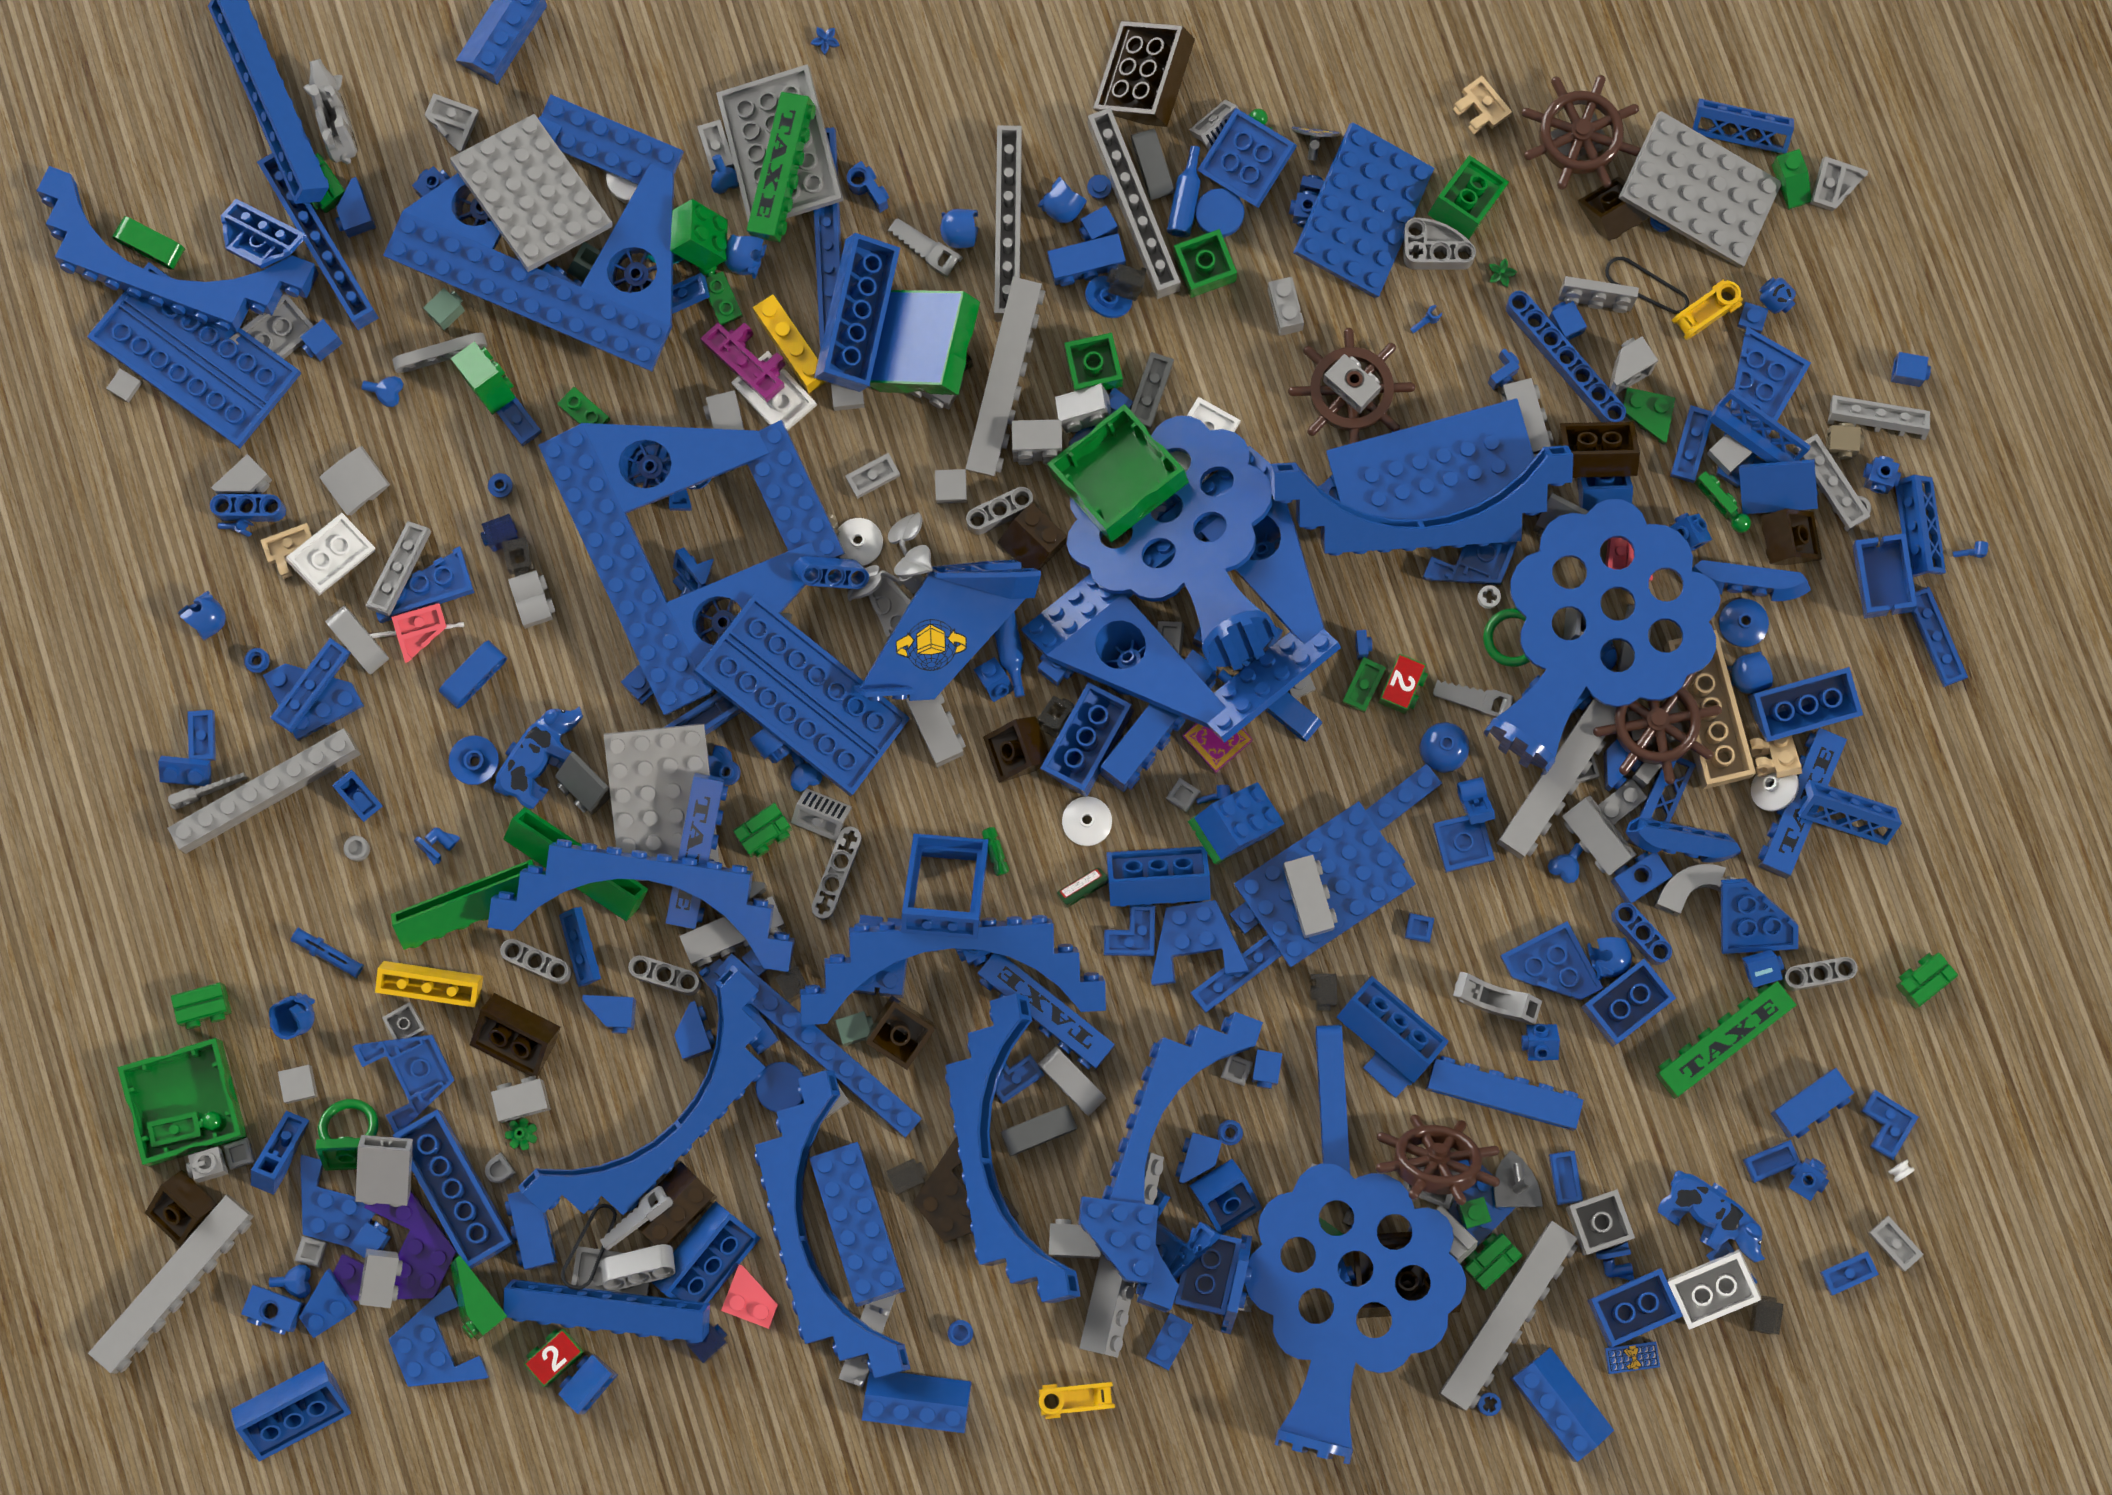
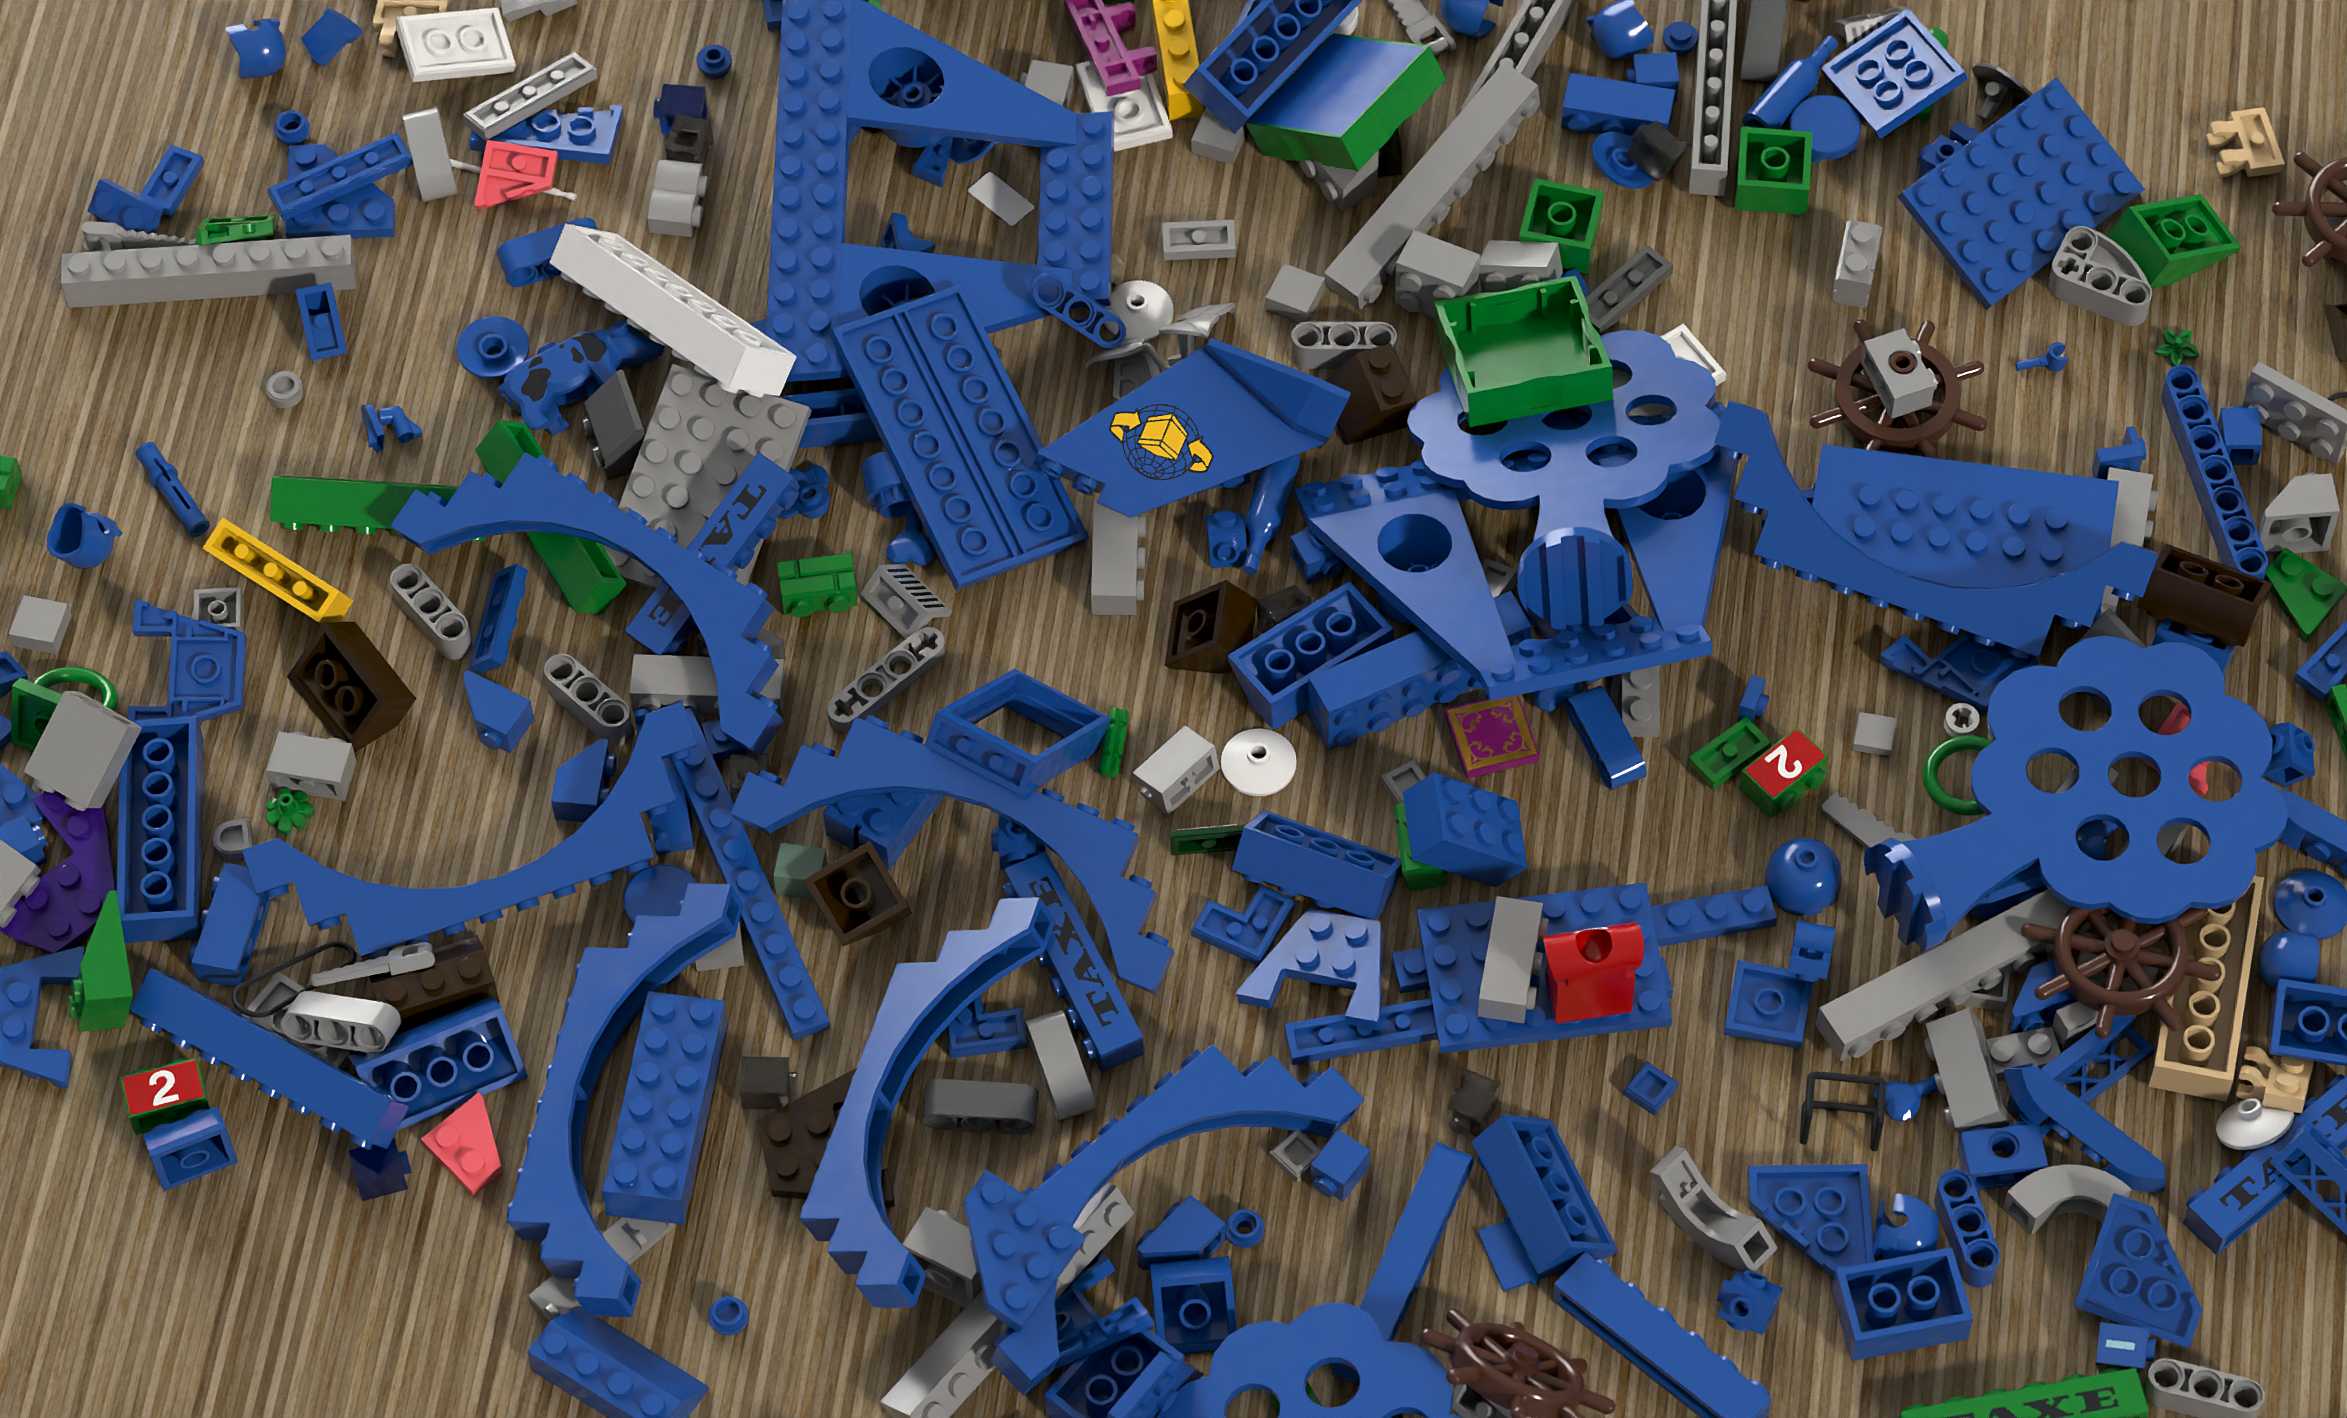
camera: 25 degrees right, 20 degrees down
(245, 582) = (330, 36): none -> blue tile
(263, 753) = (228, 229): none -> green wing
(582, 695) = (672, 311): none -> white brick
(732, 500) = (1001, 198): none -> white sticker
(1043, 853) = (1177, 770): none -> hinge
(1366, 887) = (1593, 971): none -> red piece
(1442, 630) = (1874, 734): none -> light grey tile
(1536, 884) = (1877, 1112): none -> black piece

